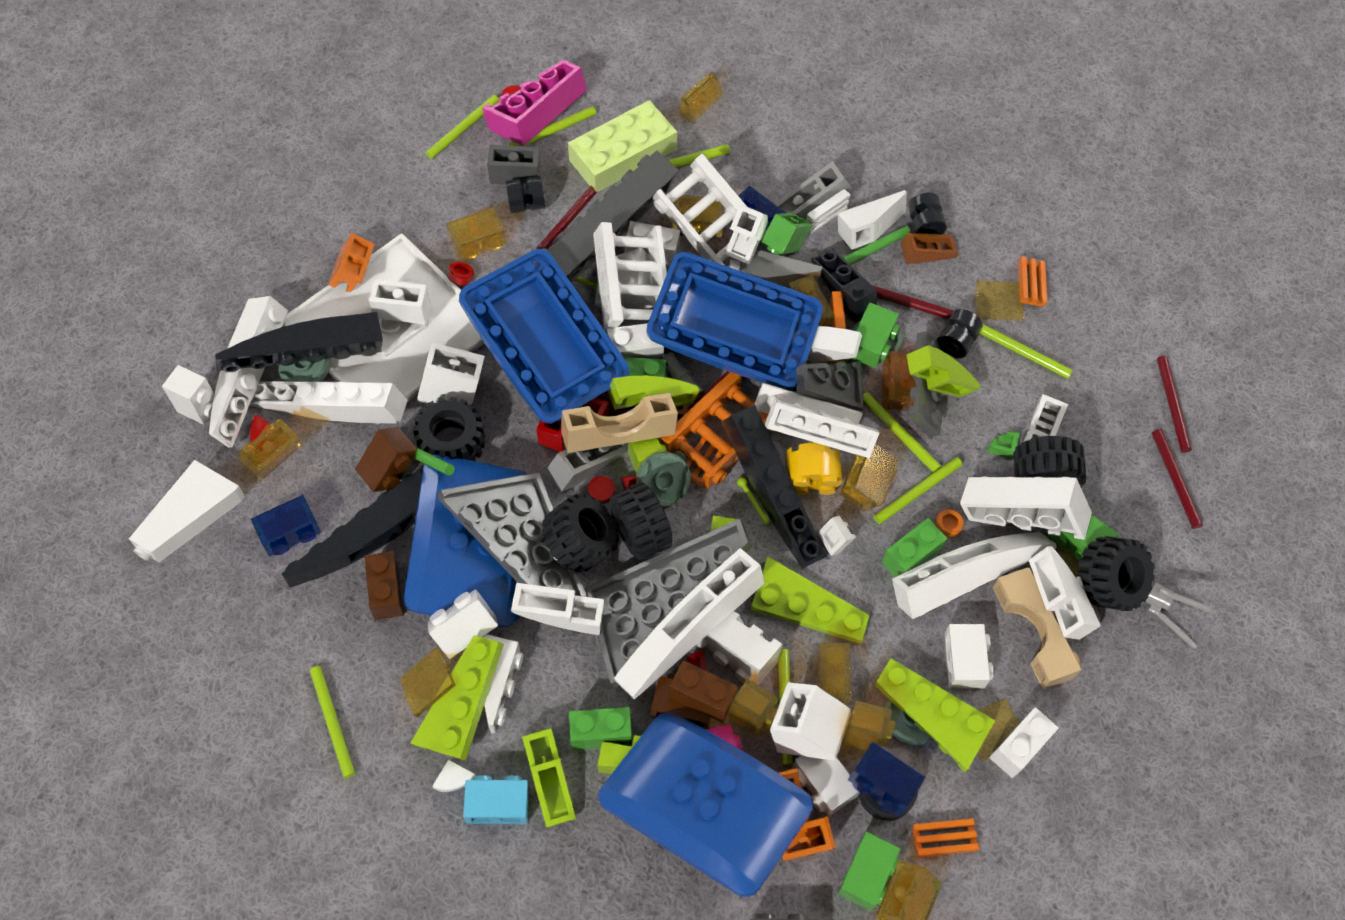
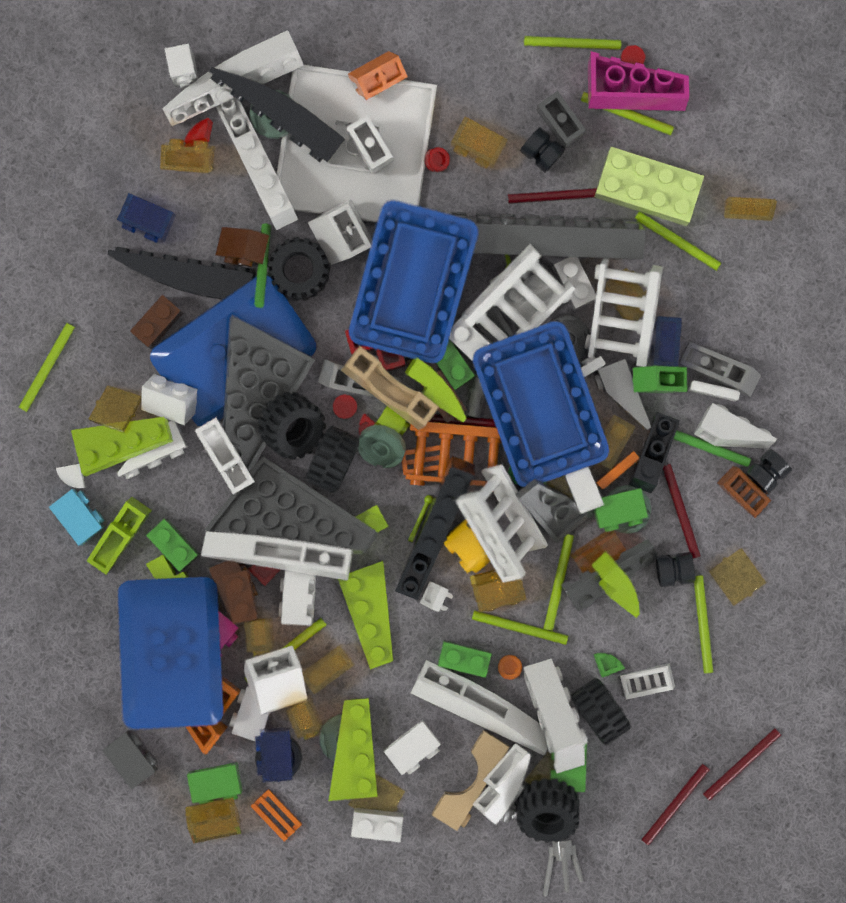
camera: 55 degrees right, 25 degrees up
(185, 511) = (105, 140): white slope -> none
(748, 229) = (623, 355): white brick -> none
(1037, 281) = (776, 599): orange tile -> none

